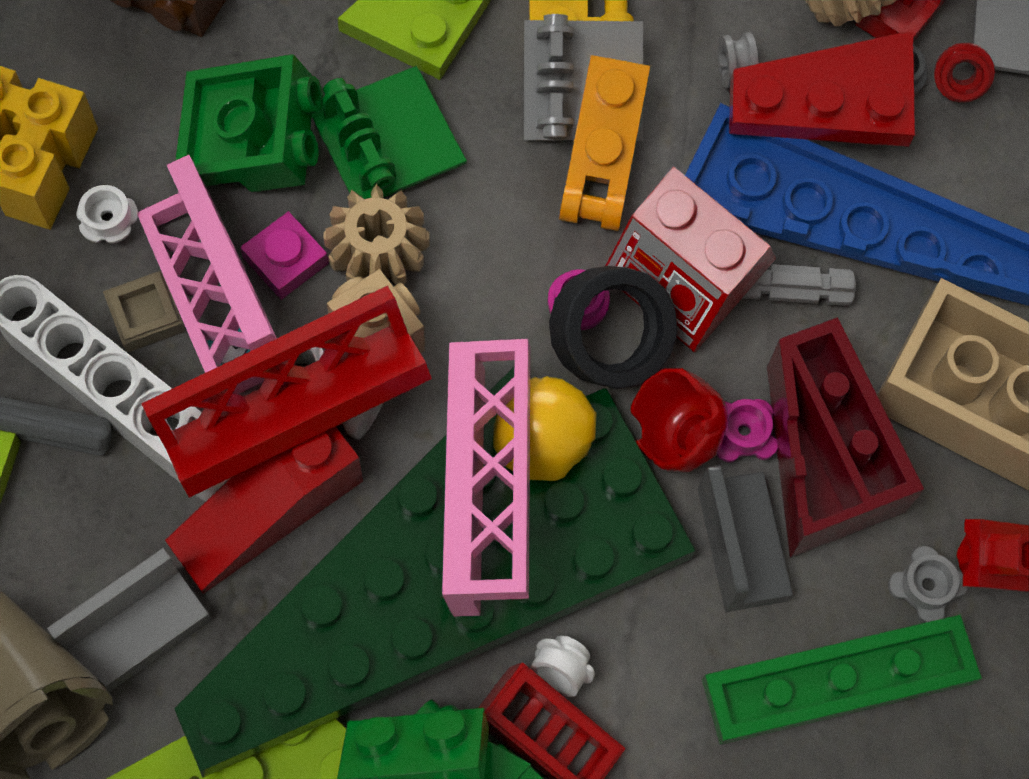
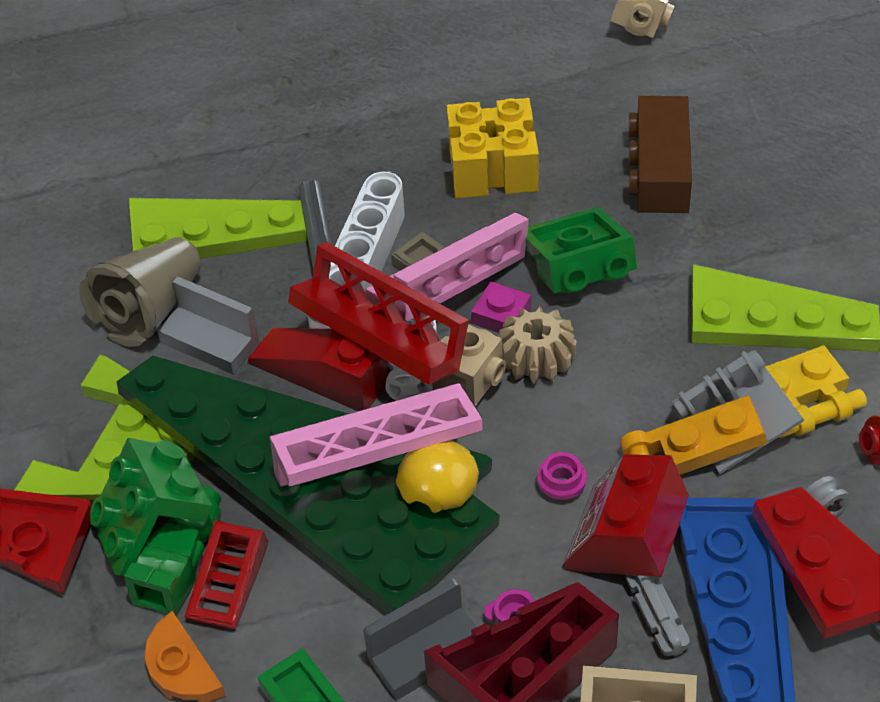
camera: 75 degrees right, 20 degrees down
(105, 200) = (475, 211): white plate -> none
(386, 133) = (624, 324): green hinge -> none
(563, 664) = (277, 564): white plate -> none
(657, 337) = (507, 474): black tyre -> none
(679, 420) = (497, 568): red hair -> none

